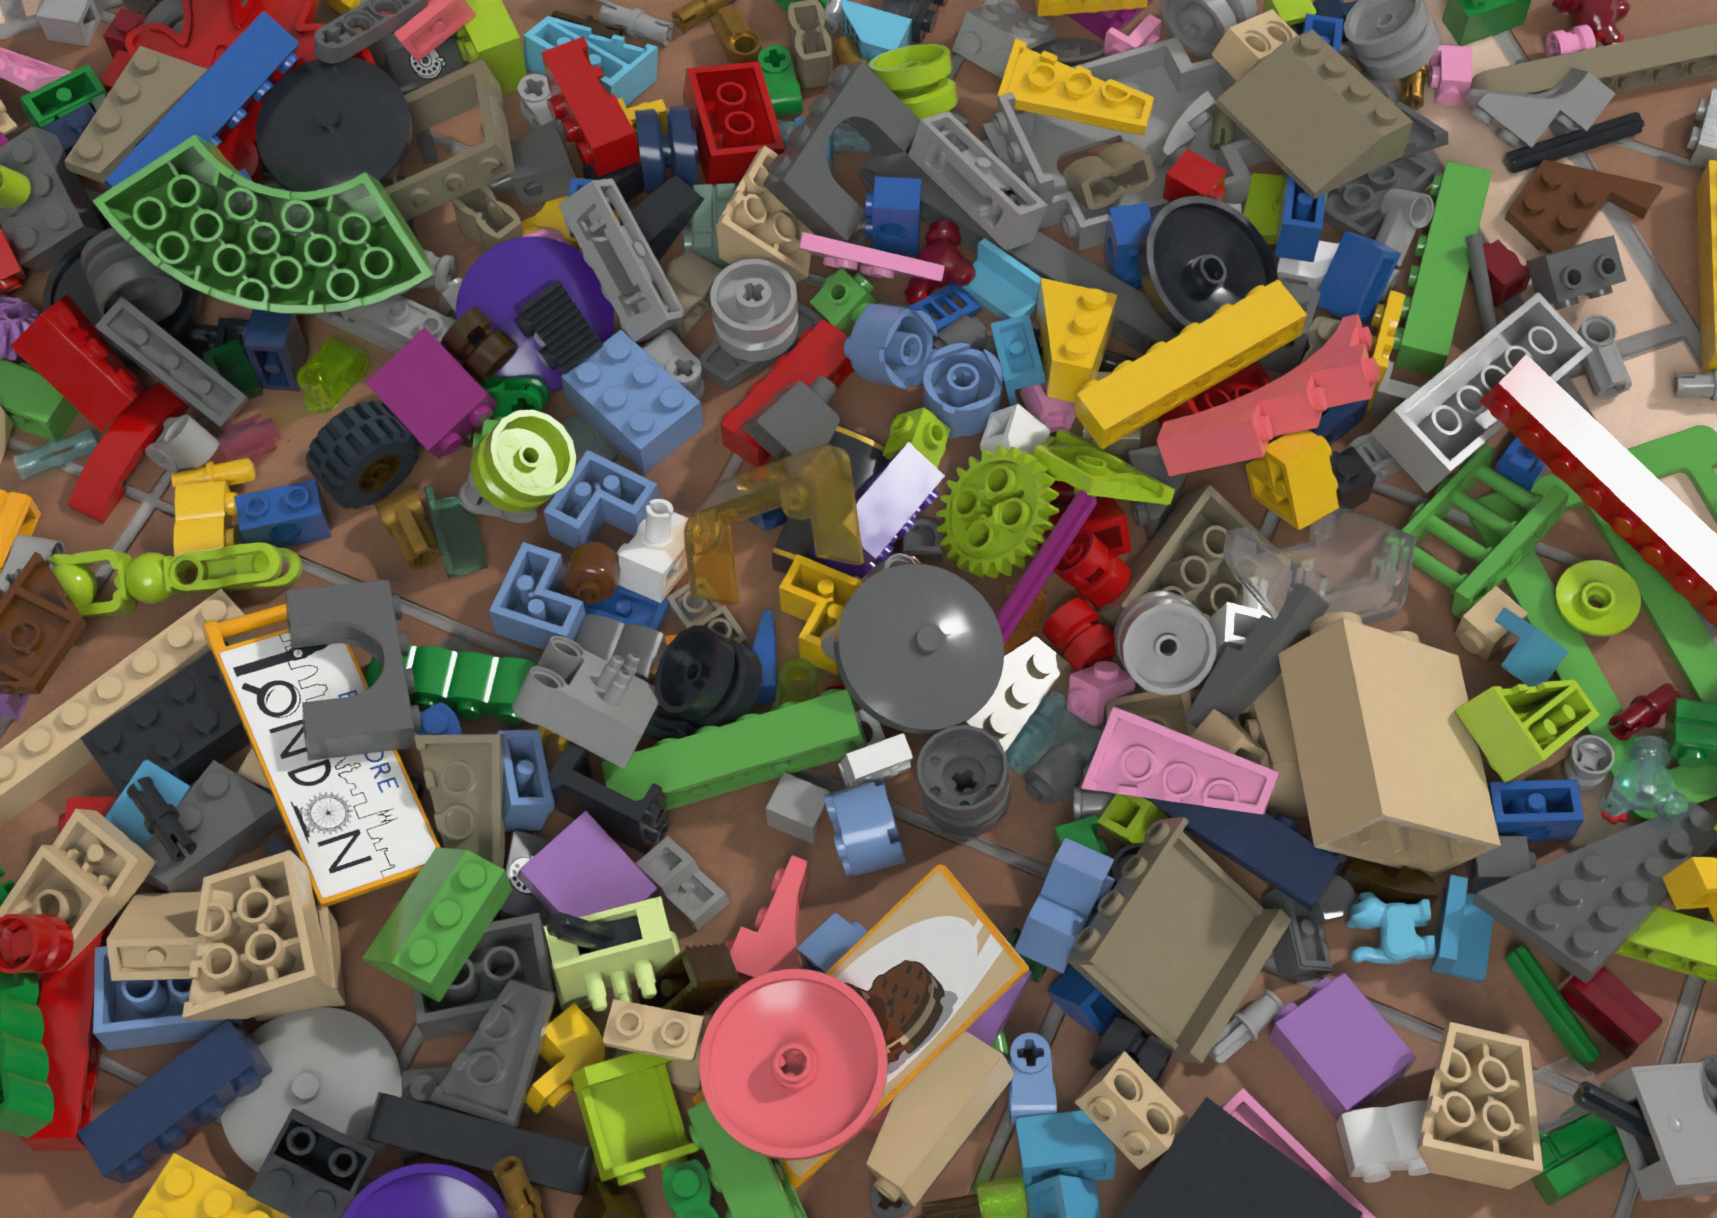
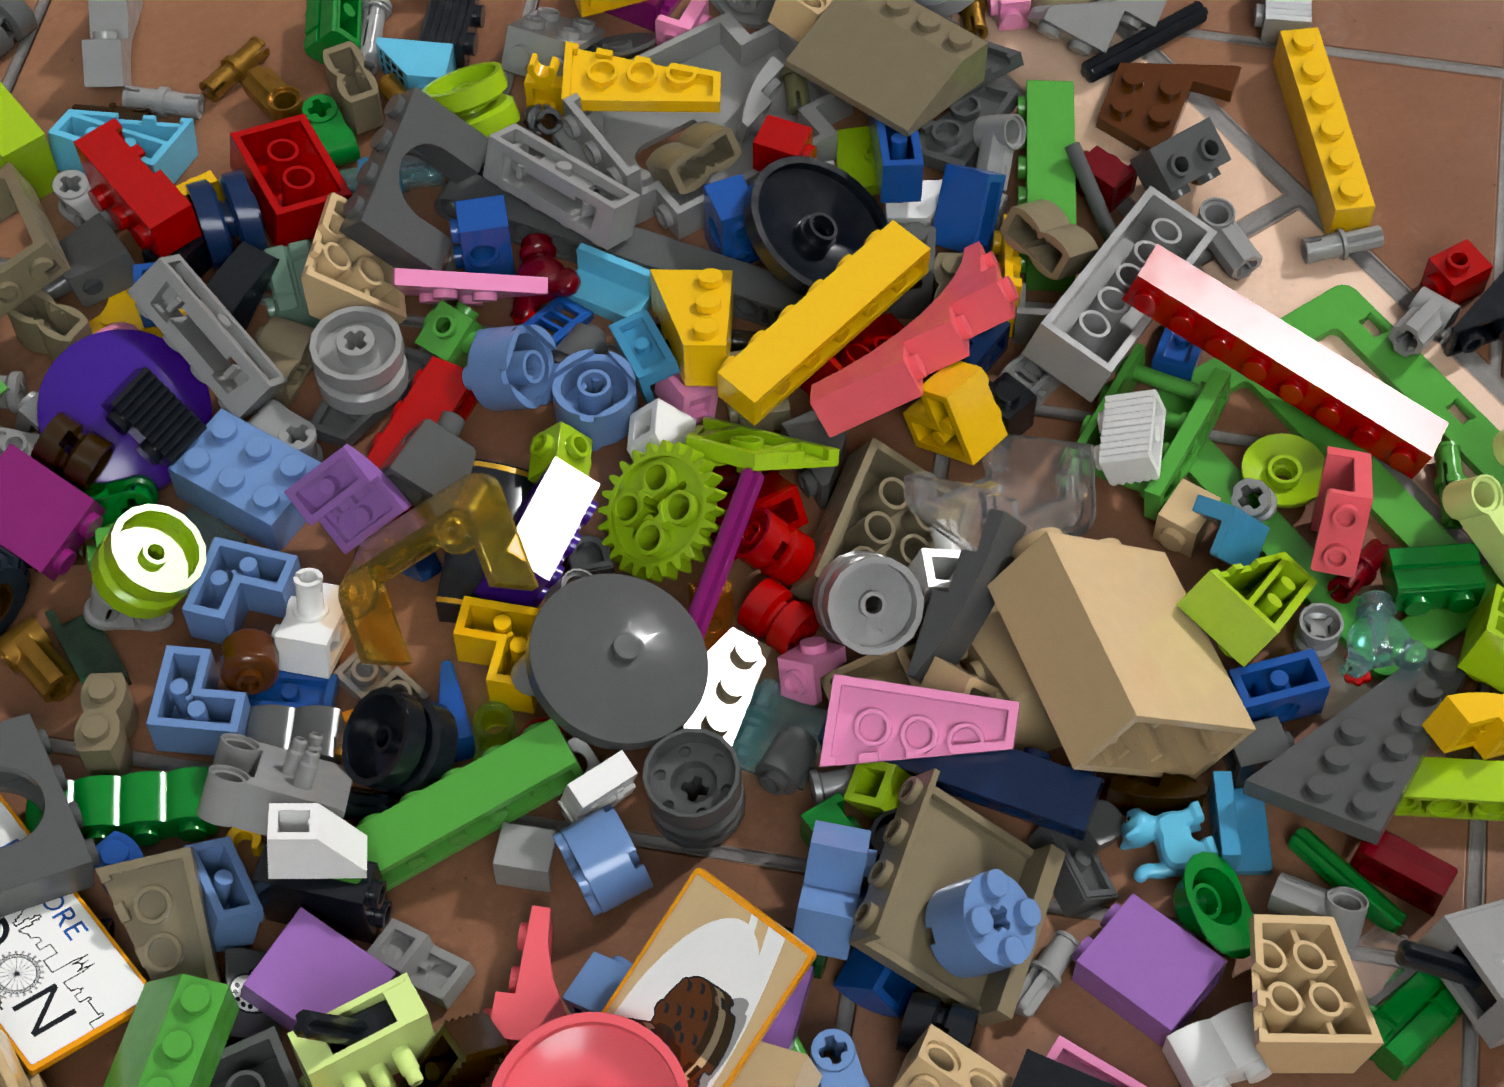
camera: 15 degrees left, 5 degrees down
(456, 602) = (106, 725): none -> dark tan brick
(607, 758) = (313, 844): none -> white slope
(714, 439) = (347, 497): none -> medium lavender slope
(982, 116) = (547, 126): none -> black pin
(985, 75) = (543, 84): none -> yellow plate
(1194, 971) = (982, 924): none -> medium blue brick
(1419, 1000) = (1214, 905): none -> green piece
(1425, 325) = (1048, 239): none -> dark tan brick
(1455, 536) = (1131, 437): none -> white brick
(1505, 1016) = (1303, 898): none -> light grey piece
(1547, 617) = (1266, 499): none -> light grey bush
(1640, 652) = (1341, 511): none -> coral panel

